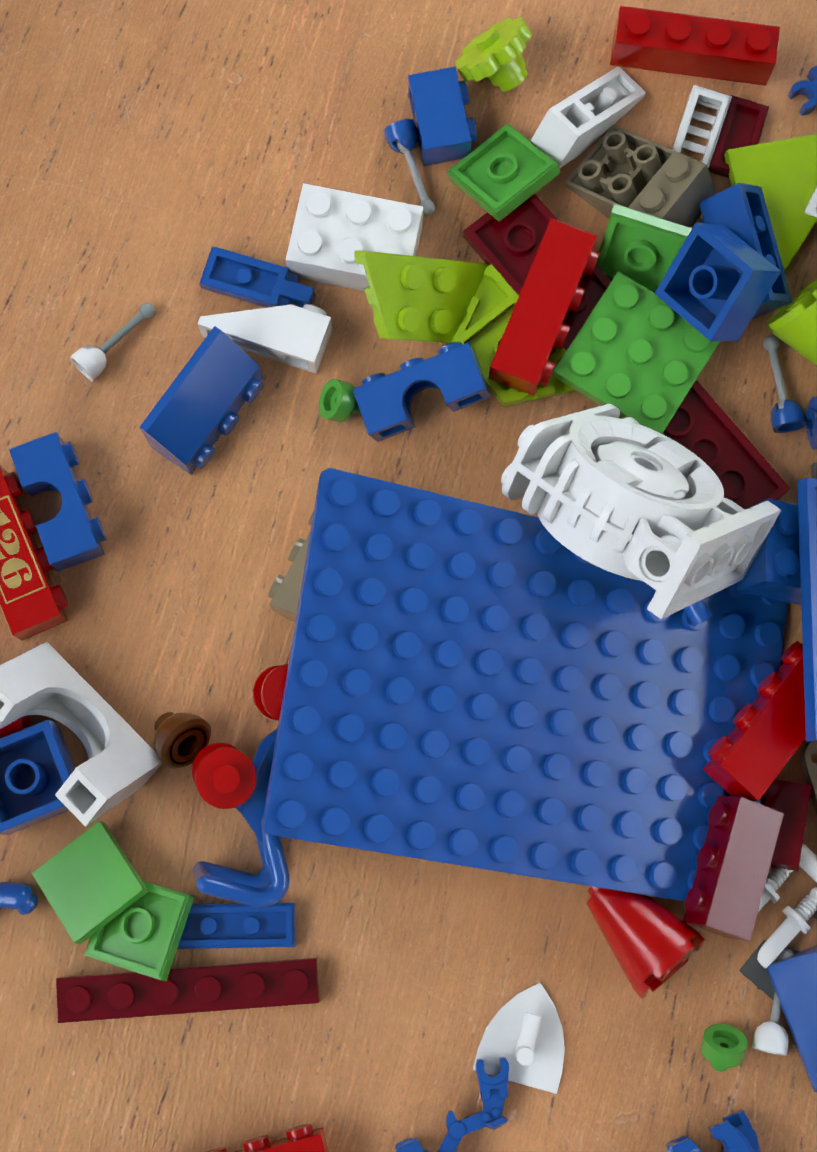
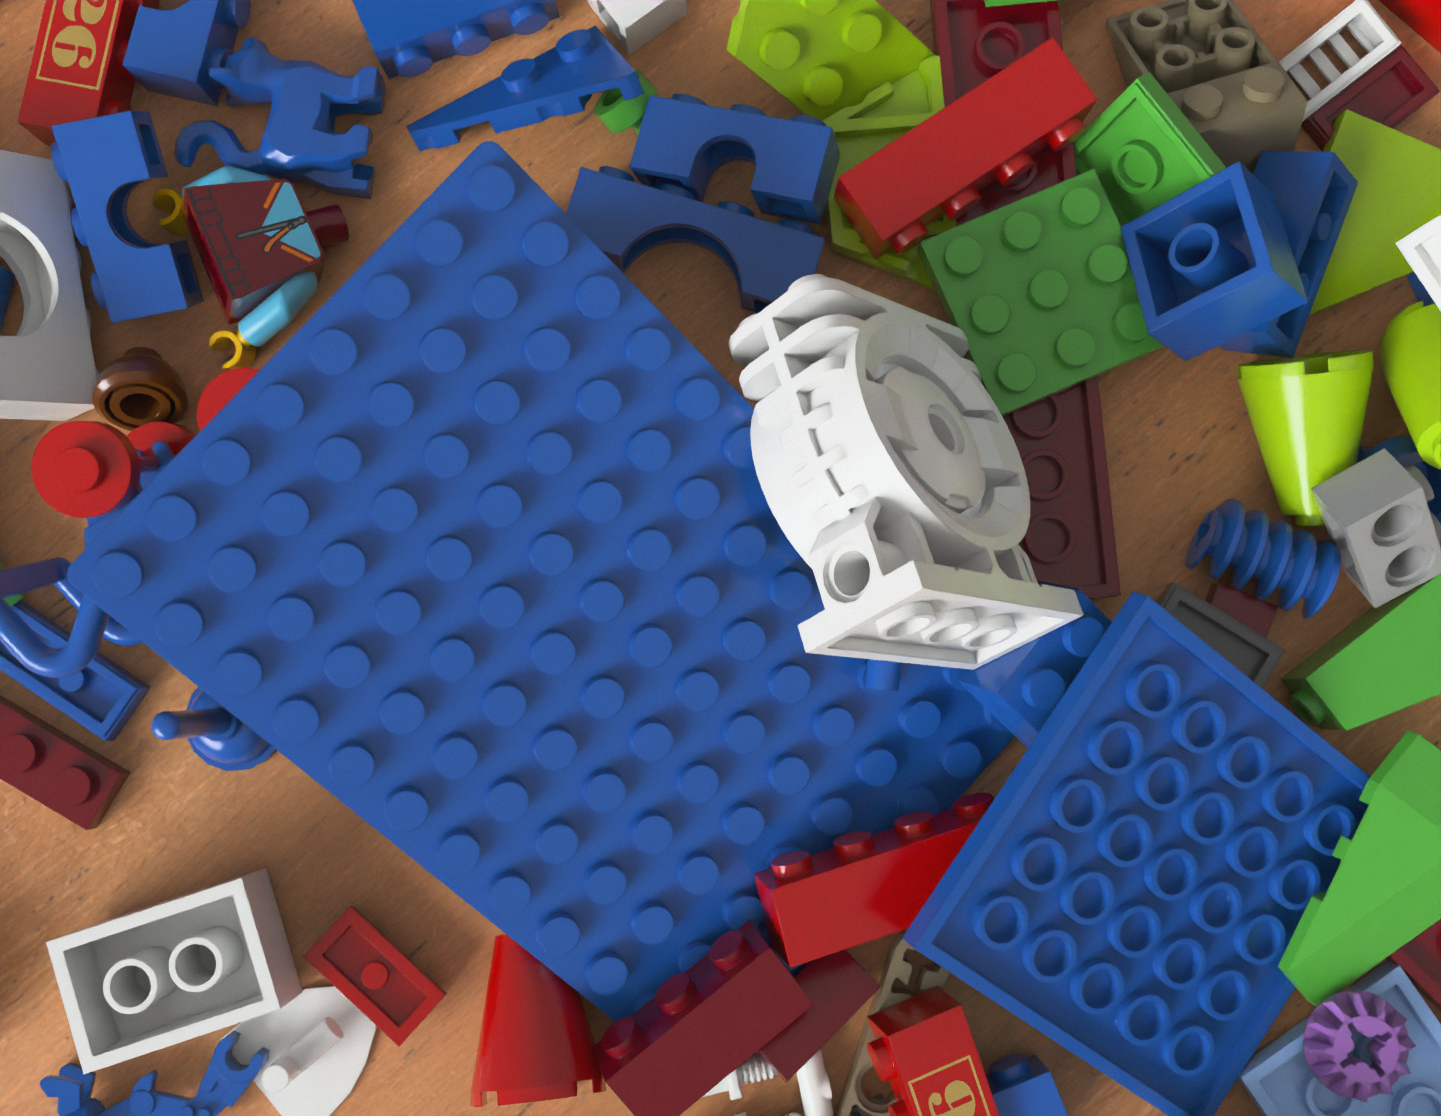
camera: 30 degrees right, 5 degrees up
(136, 674) = (103, 165): none -> blue arch
(169, 537) = (301, 124): none -> blue animal
(189, 615) = (255, 249): none -> torso
(284, 426) = (534, 90): none -> blue wing
(356, 887) = (213, 734): none -> blue piece
(426, 1040) = (174, 970): none -> white brick
(478, 437) = (634, 218): none -> blue arch
(535, 970) = (375, 975): none -> red plate
(786, 414) = (1184, 498): hinge -> none

